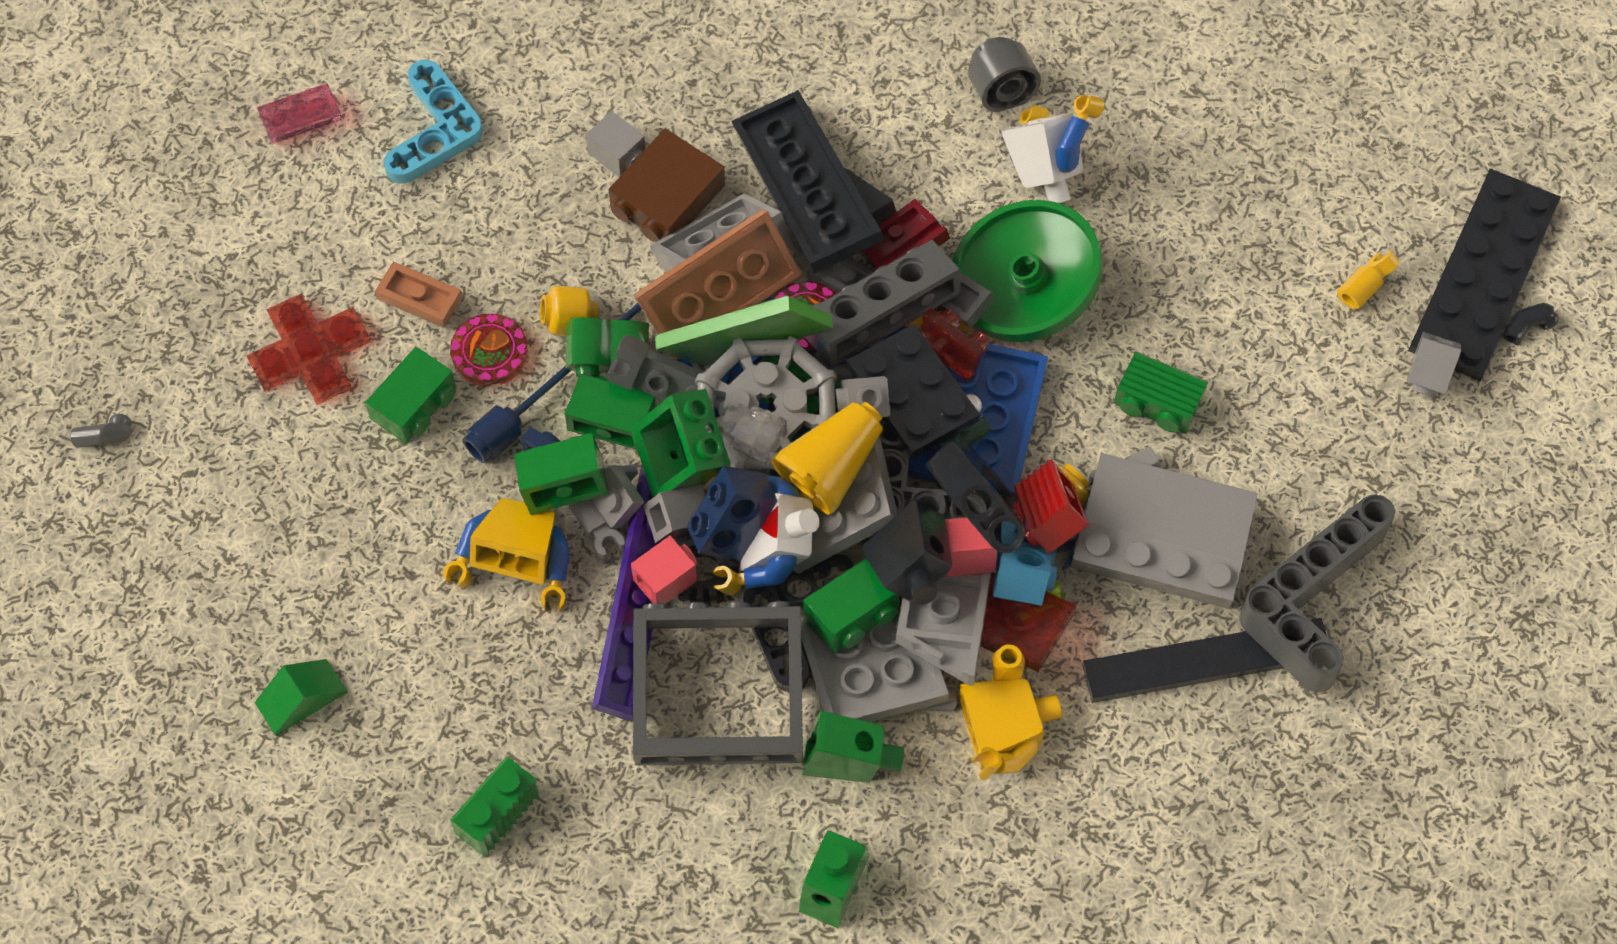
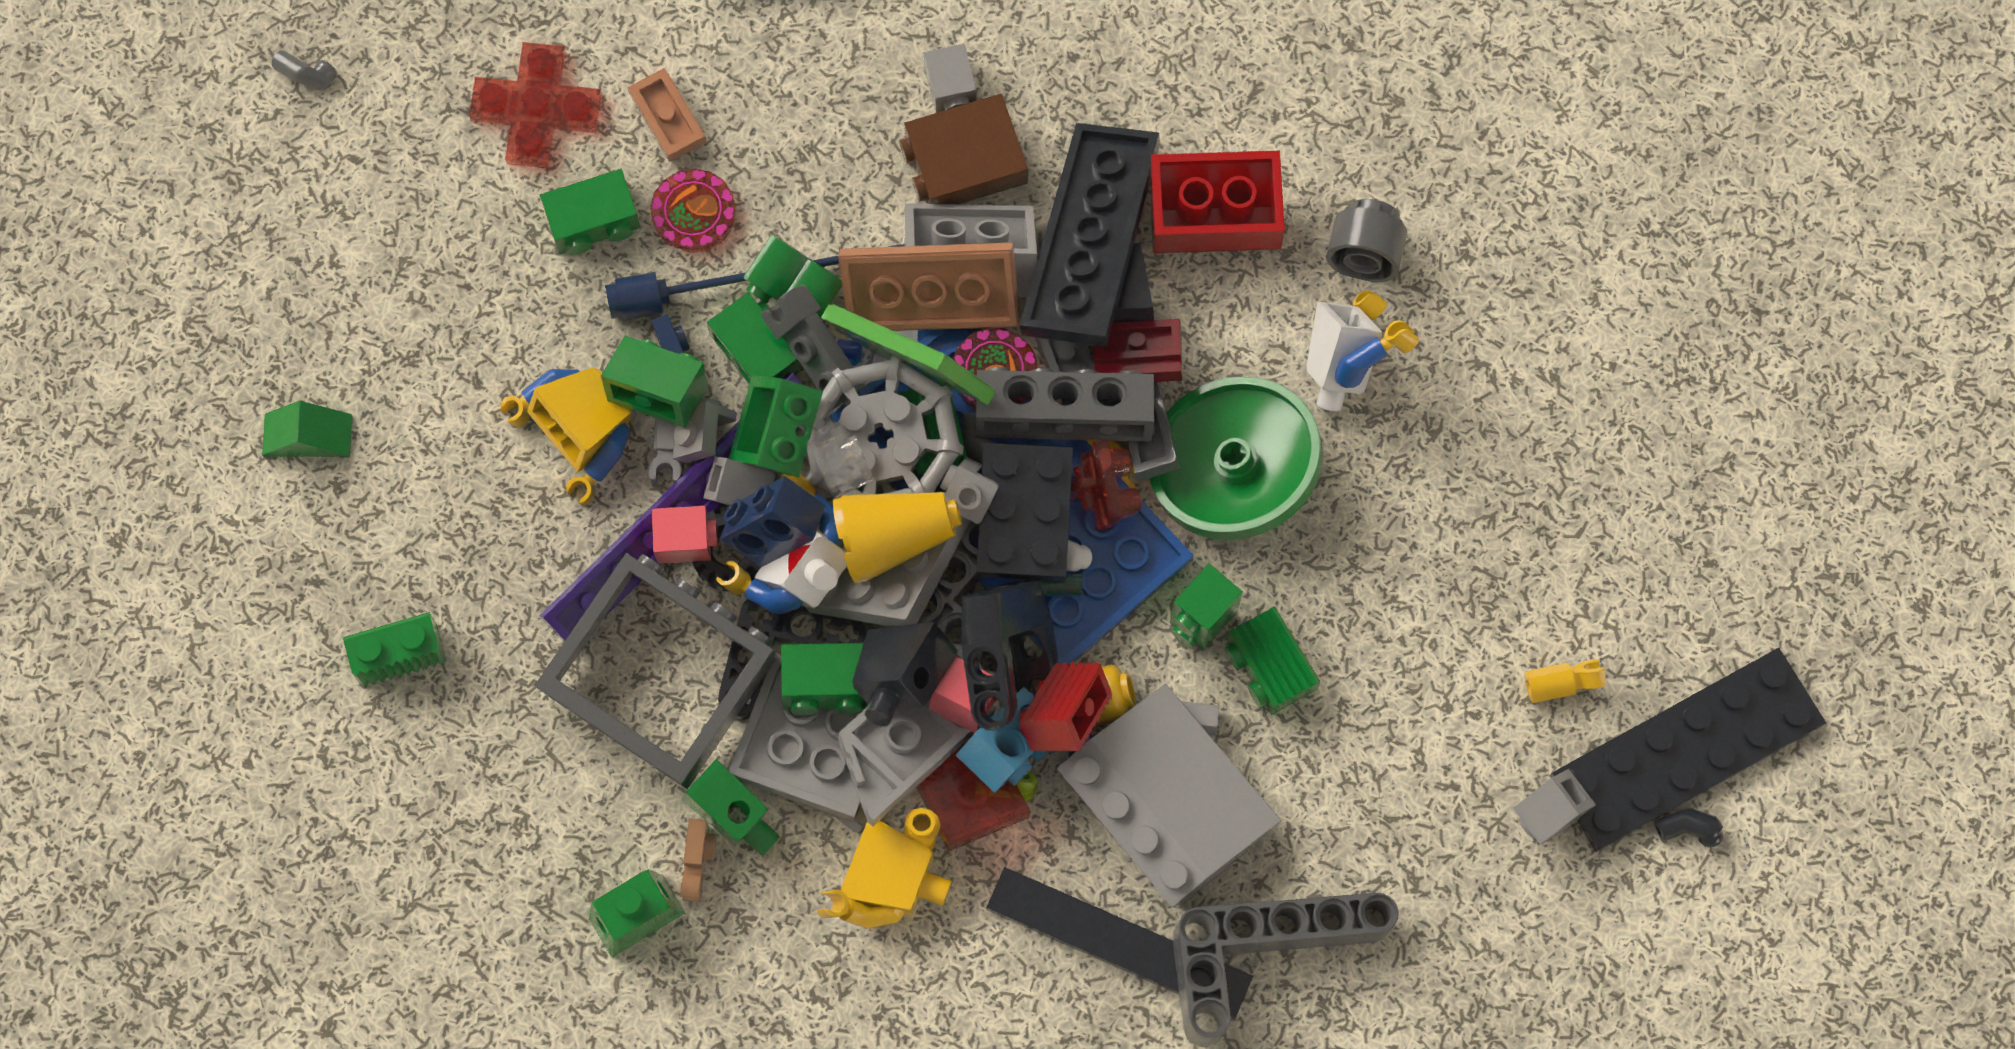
camera: 35 degrees right, 10 degrees up
(562, 305) = (788, 218): yellow head -> none
(847, 800) = (698, 848): none -> medium nougat plate
(877, 110) = (1216, 202): none -> red slope
(1089, 382) = (1204, 608): none -> green brick

